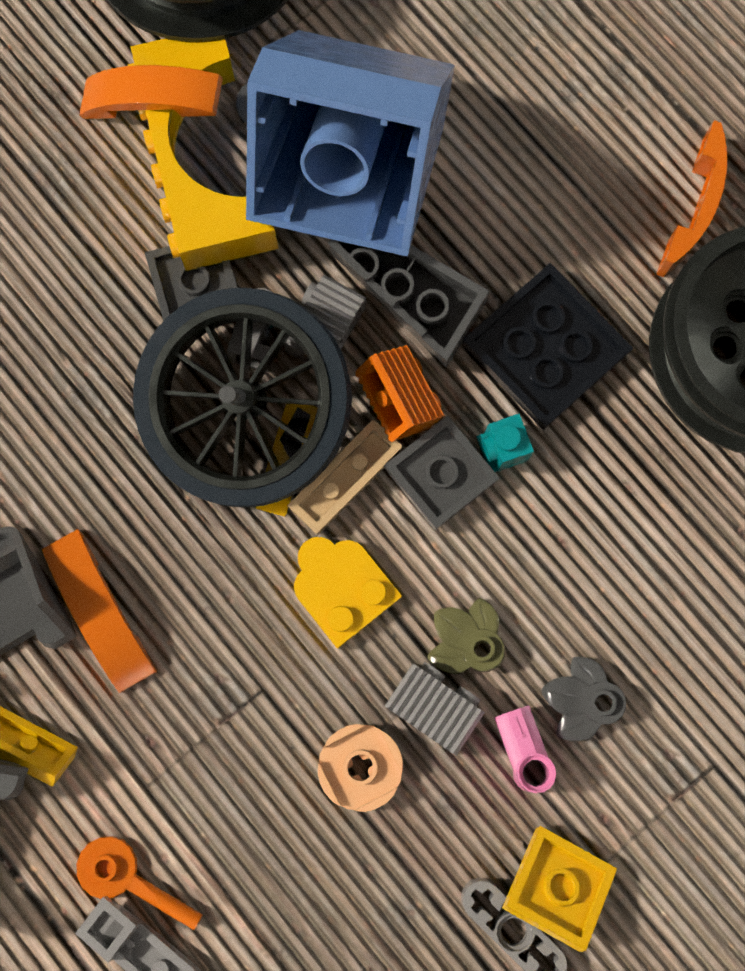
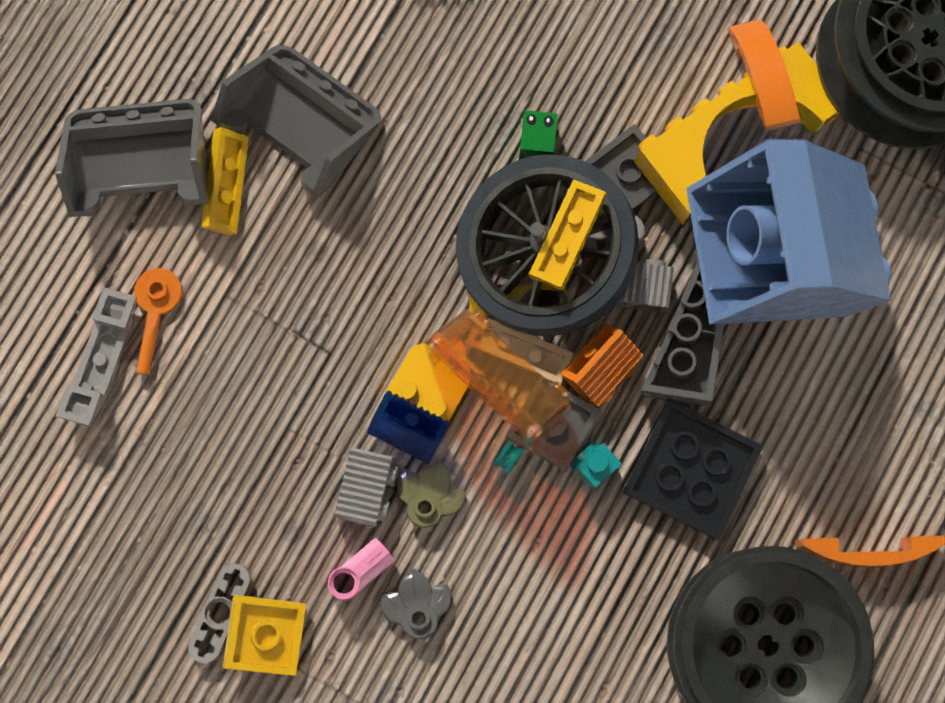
camera: 70 degrees right, 0 degrees up
(97, 611) = (341, 204): orange slope -> none
(111, 360) = (538, 134): none -> green brick
(246, 365) = (568, 234): none -> yellow plate
(353, 791) = (279, 449): light nougat plate -> none
(377, 503) = (500, 377): none -> clear orange windscreen
(386, 632) = (407, 427): none -> clear blue brick
(460, 535) = (508, 457): none -> teal bush

